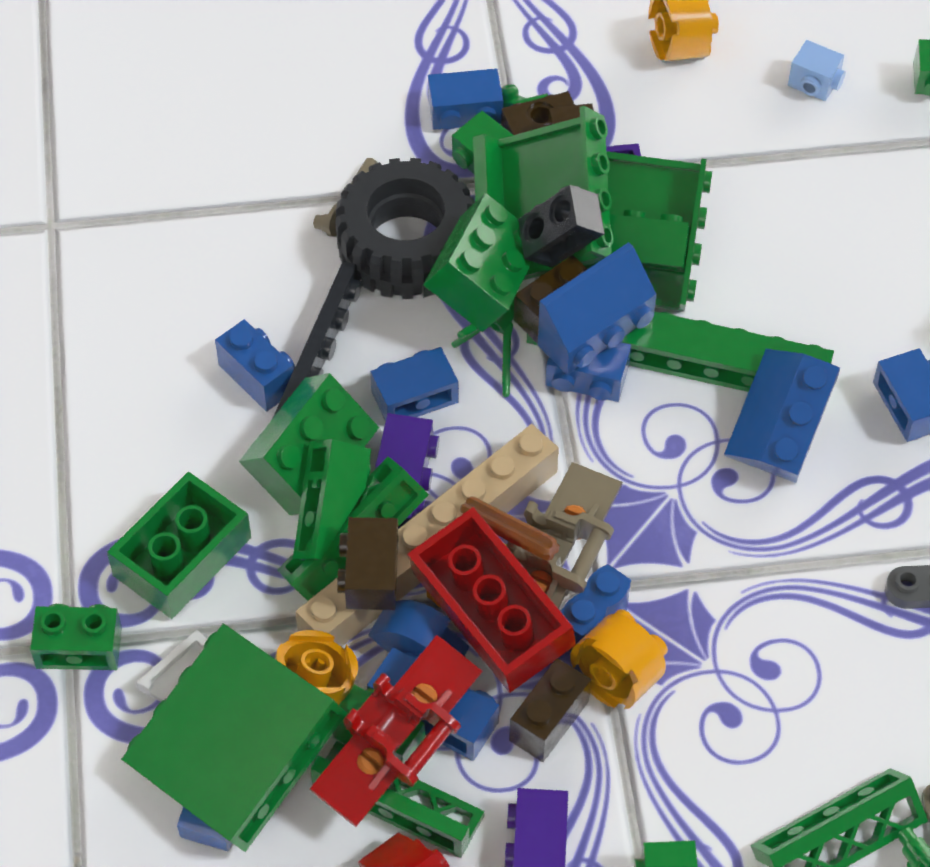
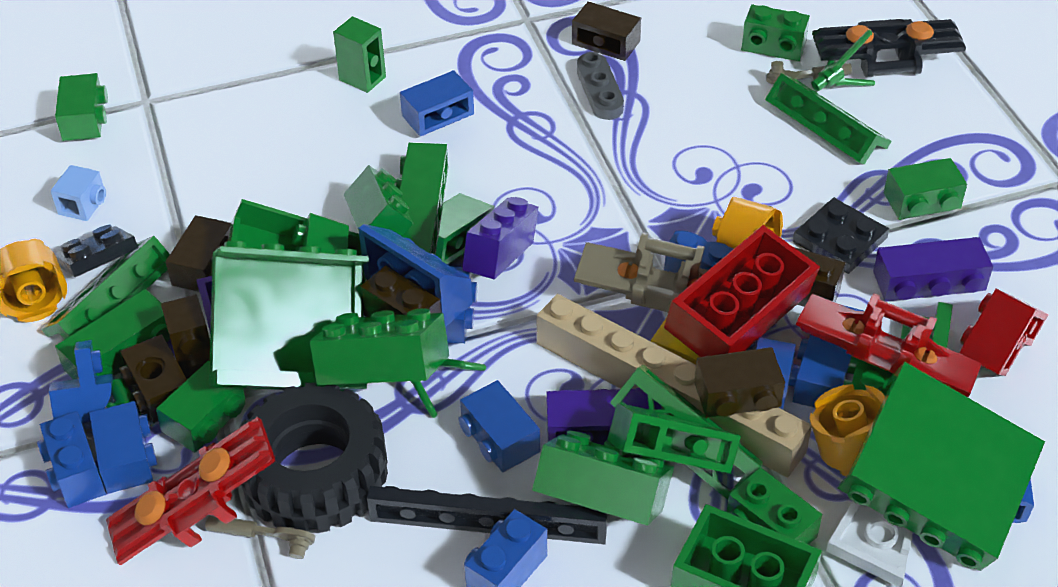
camera: 100 degrees left, 10 degrees down
(243, 591) = (775, 507): none -> green brick
(383, 135) = (191, 493): none -> red piece
(456, 54) = (71, 458): none -> blue brick
(514, 530) = (670, 289): dark orange axle -> none
(530, 62) = (86, 393): none -> blue brick
(561, 226) = (357, 272): black brick -> none
(593, 82) = (119, 329): none -> green brick
(627, 785) = (841, 234): none -> black plate
(656, 412) = (500, 237): none -> dark purple brick
(667, 96) = (113, 287): none -> green fence
(688, 381) = (457, 218): none -> slope
(720, 80) = (104, 246): none -> black plate
(721, 304) = (377, 201): none -> brick
(724, 161) = (194, 251): none -> dark brown brick
(782, 412) = (480, 160): blue slope -> none

